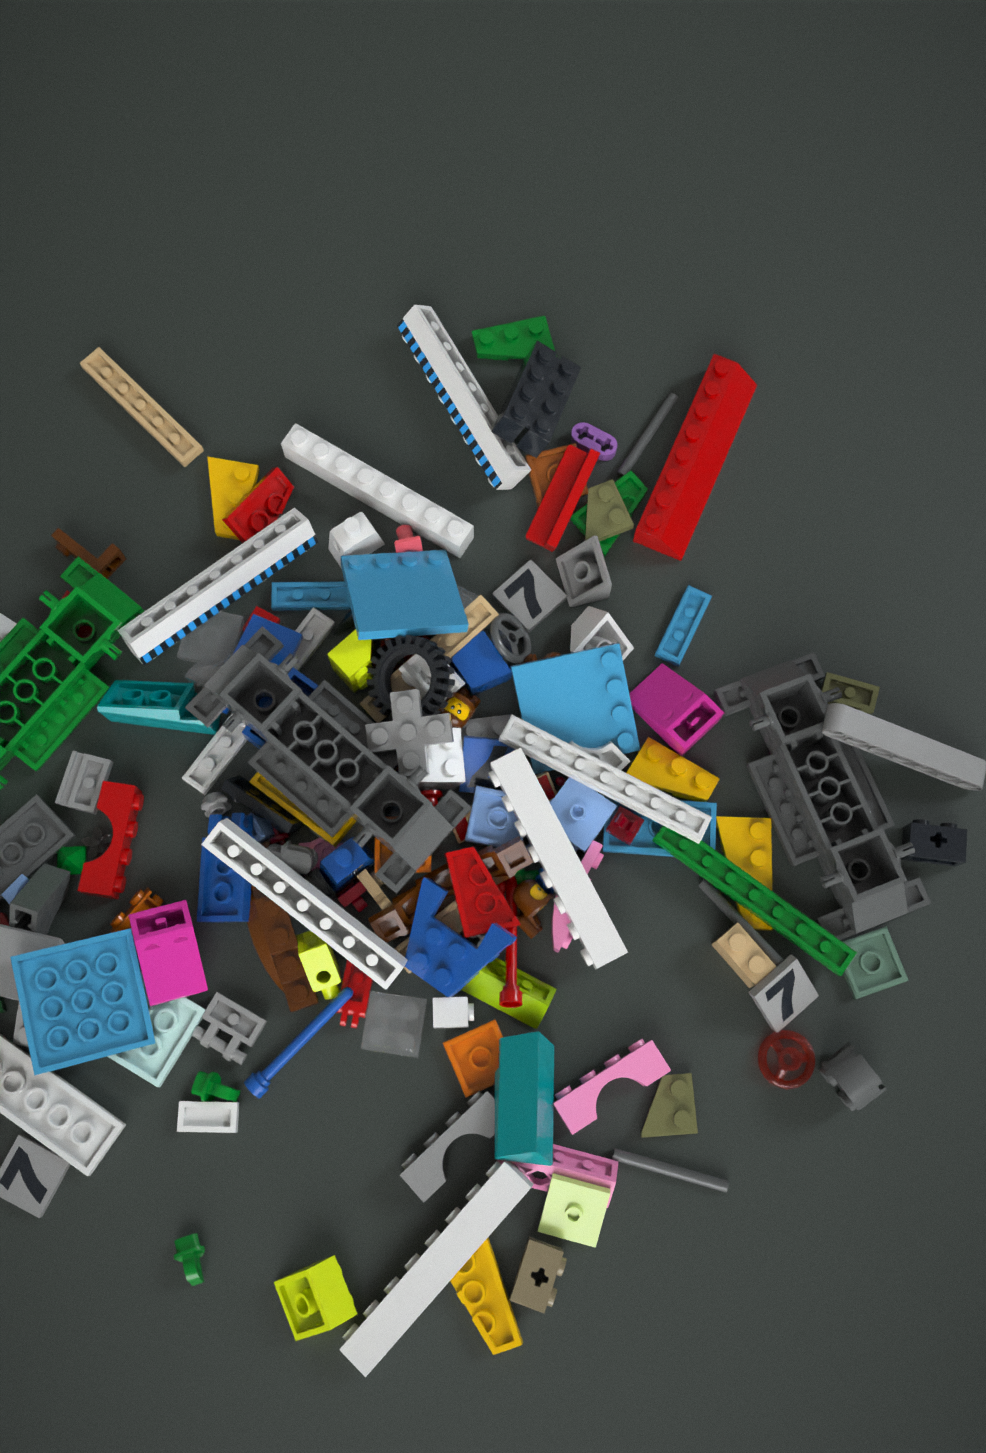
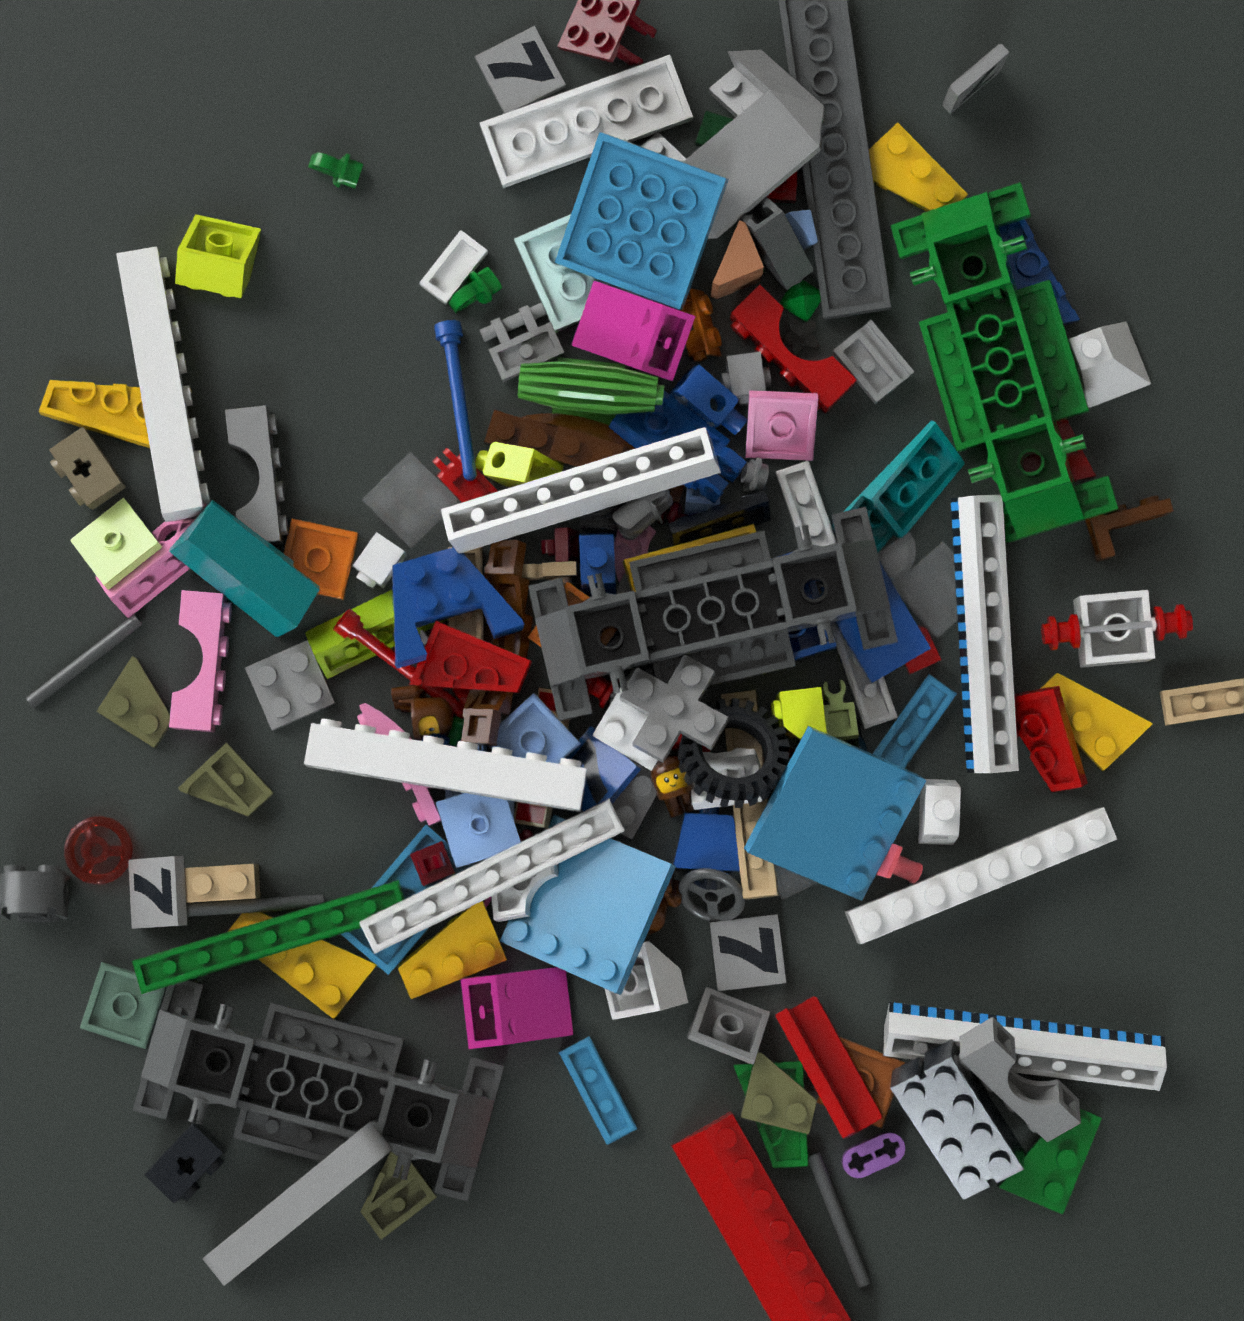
camera: 125 degrees right, 10 degrees up
(70, 915) = (739, 266): none -> nougat slope
(151, 856) = (745, 374): none -> light grey brick
(159, 511) = (1115, 628): none -> white brick
(168, 809) = (781, 425): none -> bright pink tile
(182, 870) = (695, 392): none -> blue torso
(229, 952) = (589, 388): none -> bright green plate
(333, 638) = (840, 716): none -> yellowish green plate
(485, 396) = (1043, 1105): none -> light grey arch
(579, 1011) = (290, 685): none -> light grey plate
(675, 1003) = (228, 783): none -> olive wing

